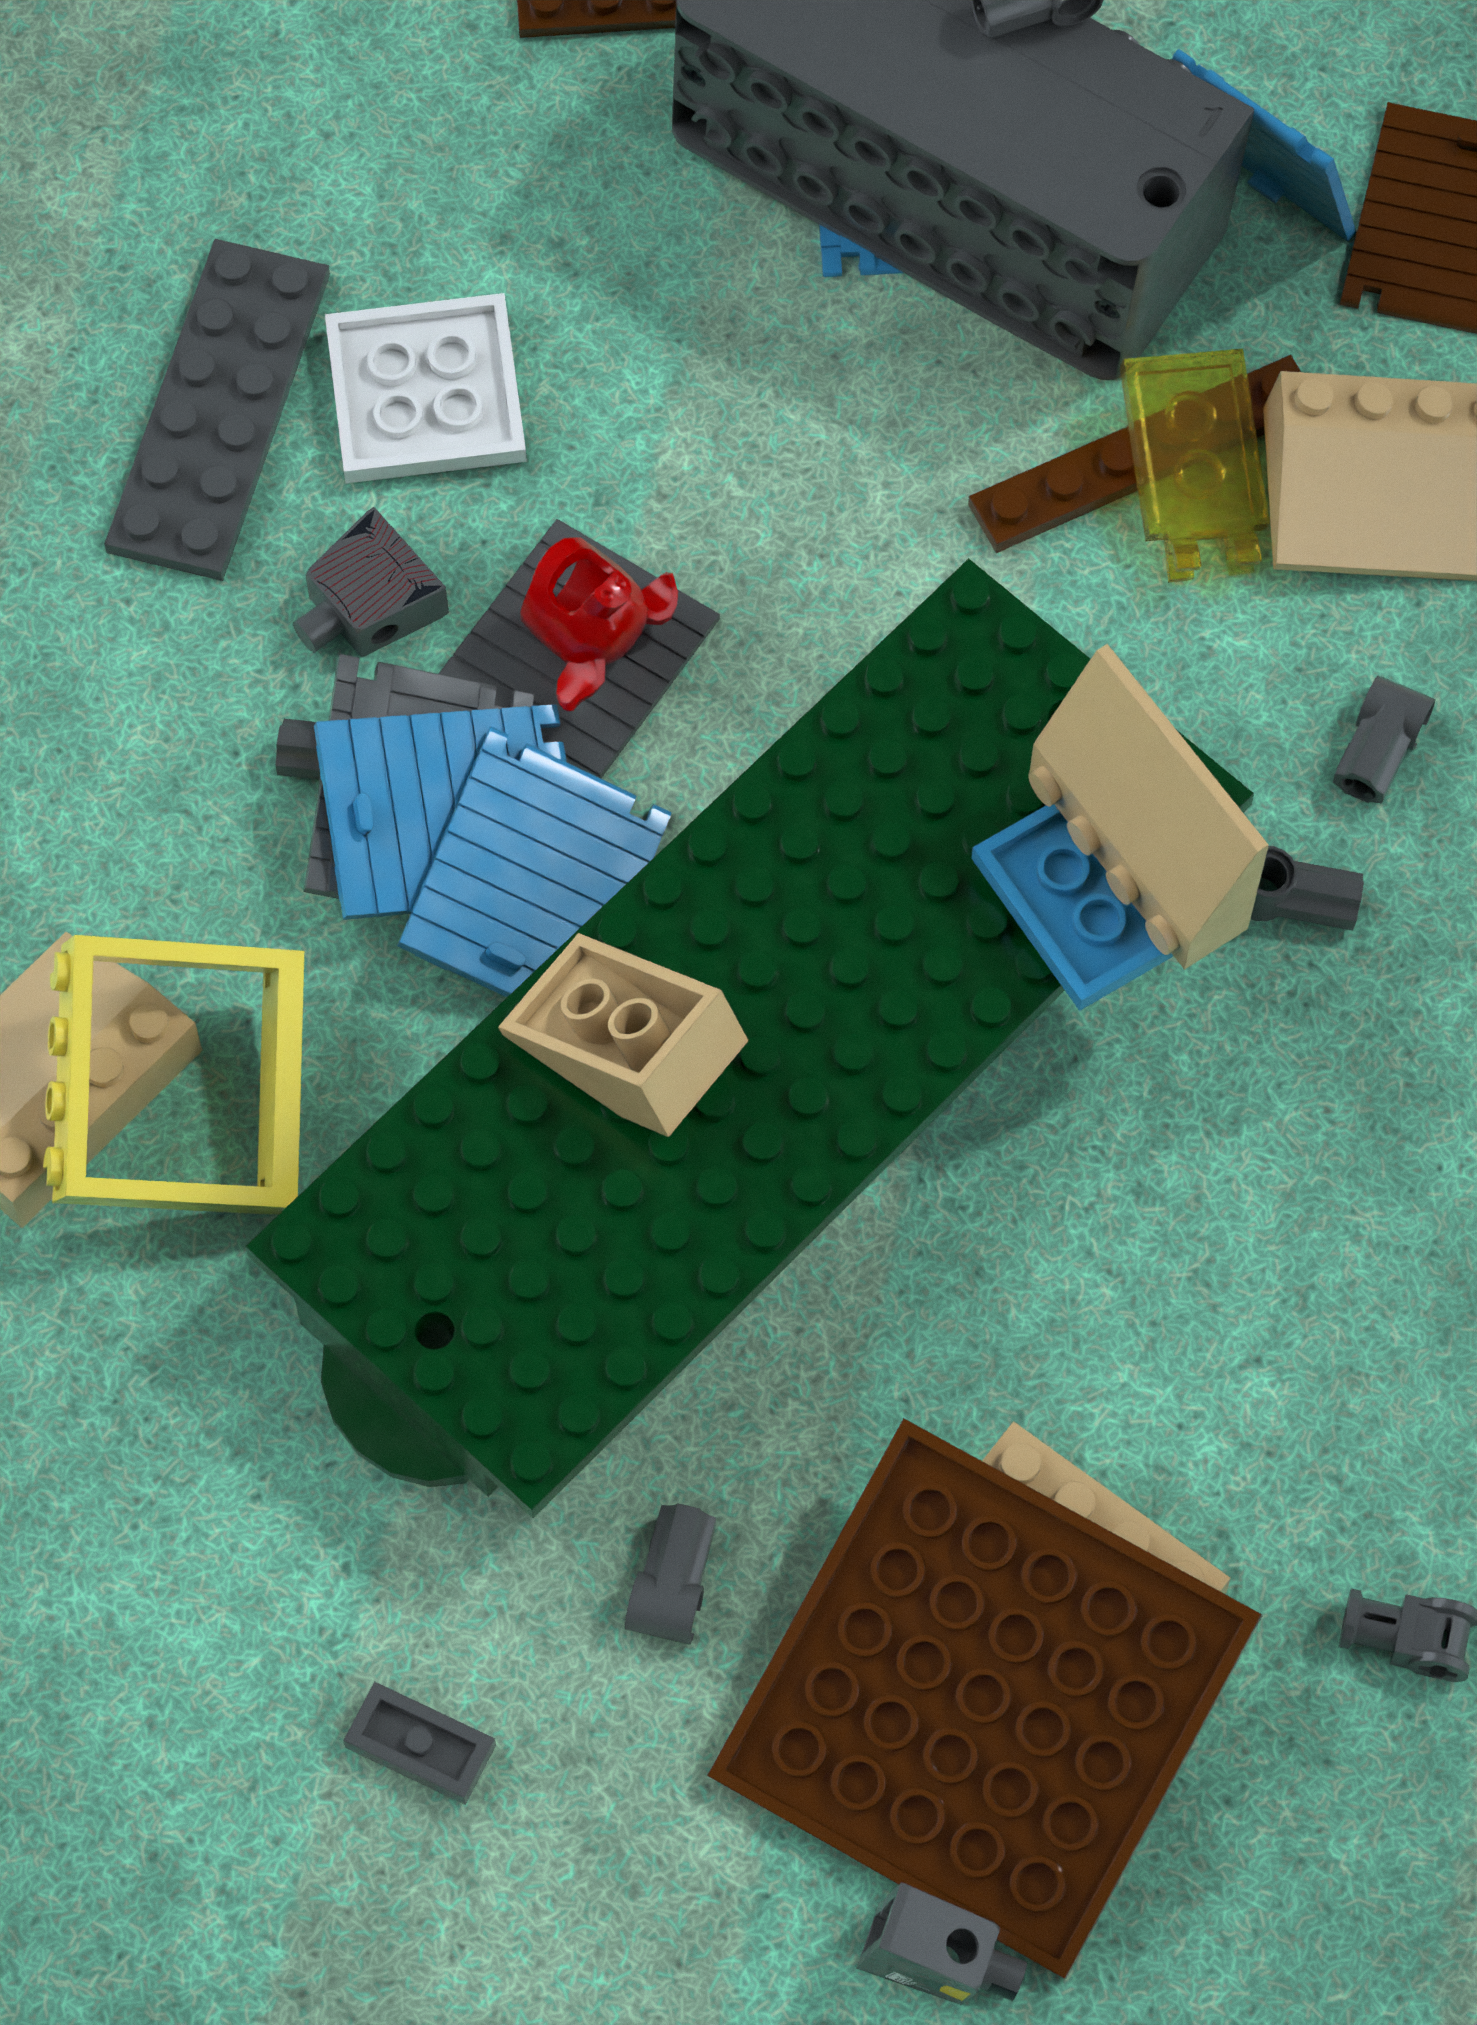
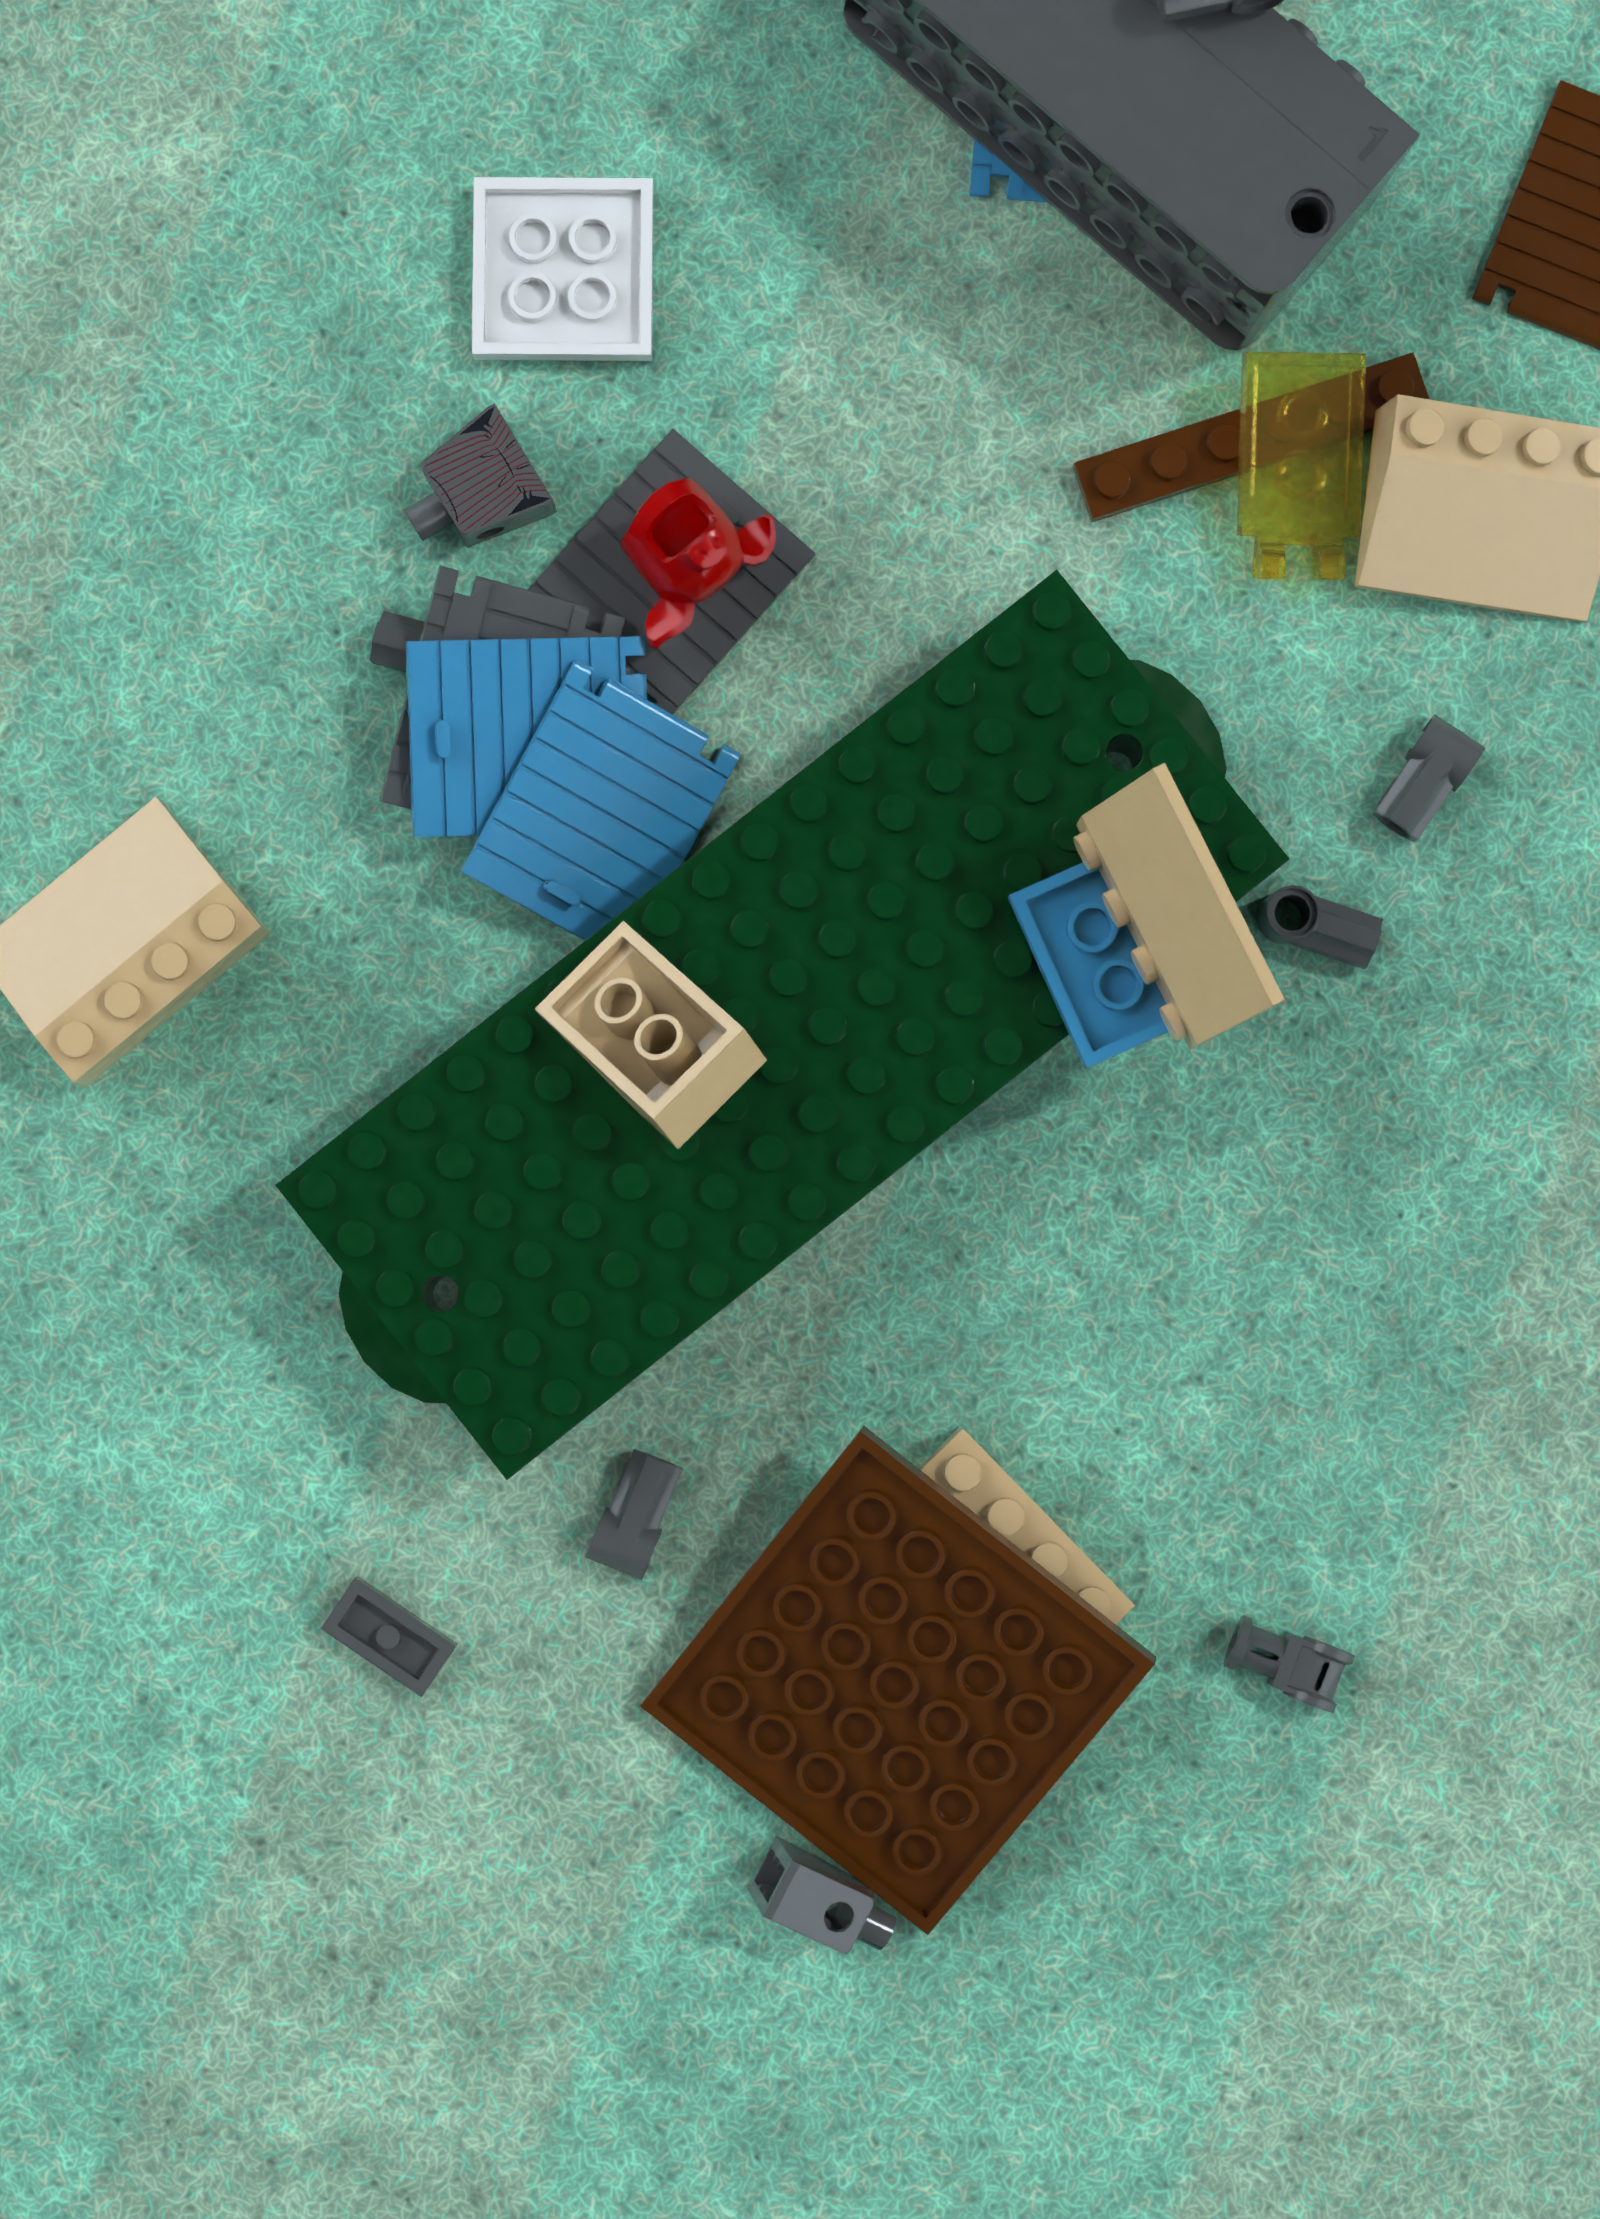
camera: 10 degrees right, 20 degrees up
(217, 410) = (360, 260): dark grey plate -> none
(279, 1077) = (334, 992): light yellow window -> none
(1286, 162) = (1427, 152): dark azure door -> none

